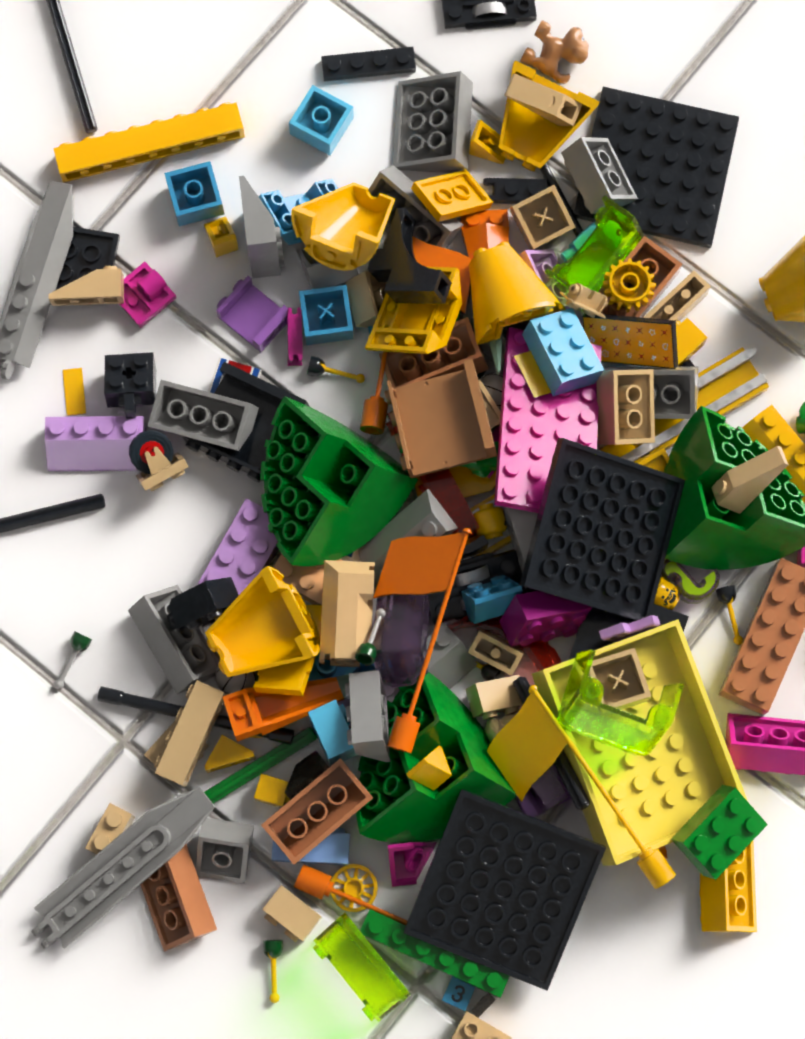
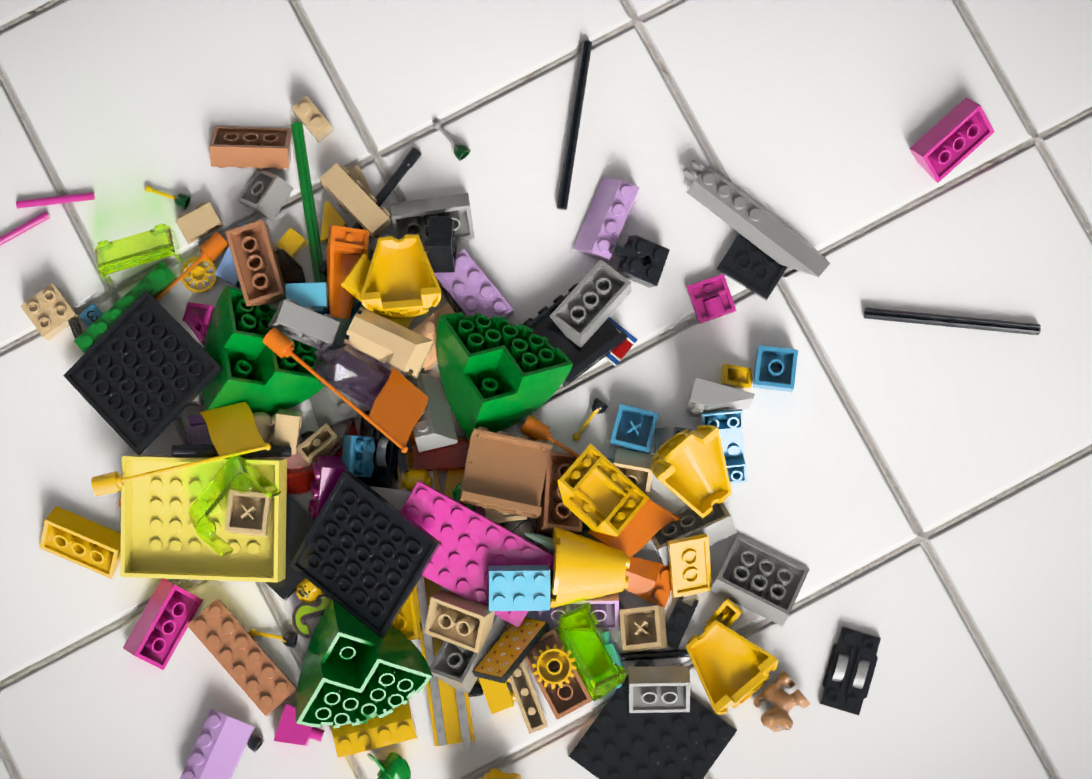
camera: 120 degrees right, 5 degrees up
(74, 391) = (657, 220): yellow sticker -> none
(96, 287) = (726, 265): tan slope -> none
(121, 867) = (280, 116): light grey hinge -> none
(149, 142) = (834, 352): yellow brick -> none
(153, 456) = (569, 255): plate -> none
(252, 314) = (660, 376): medium lavender panel -> none
(294, 335) = (627, 398): dark pink piece -> none
(321, 120) = (797, 491): medium azure brick -> none
(367, 652) = (348, 339): dark green hinge -> none
(368, 64) = (834, 551): black plate -> none
(397, 266) = (648, 497): black arch -> none
(431, 770) = (246, 353): yellow slope -> none
(532, 374) = (511, 557): yellow sticker -> none
(543, 101) = (736, 669): tan slope -> none
(582, 297) = (551, 624): tan hinge -> none
(624, 630) = (289, 541): lavender tile -> none
(719, 831) = (112, 541): green brick -> none
(746, 481) = (354, 677): tan slope -> none

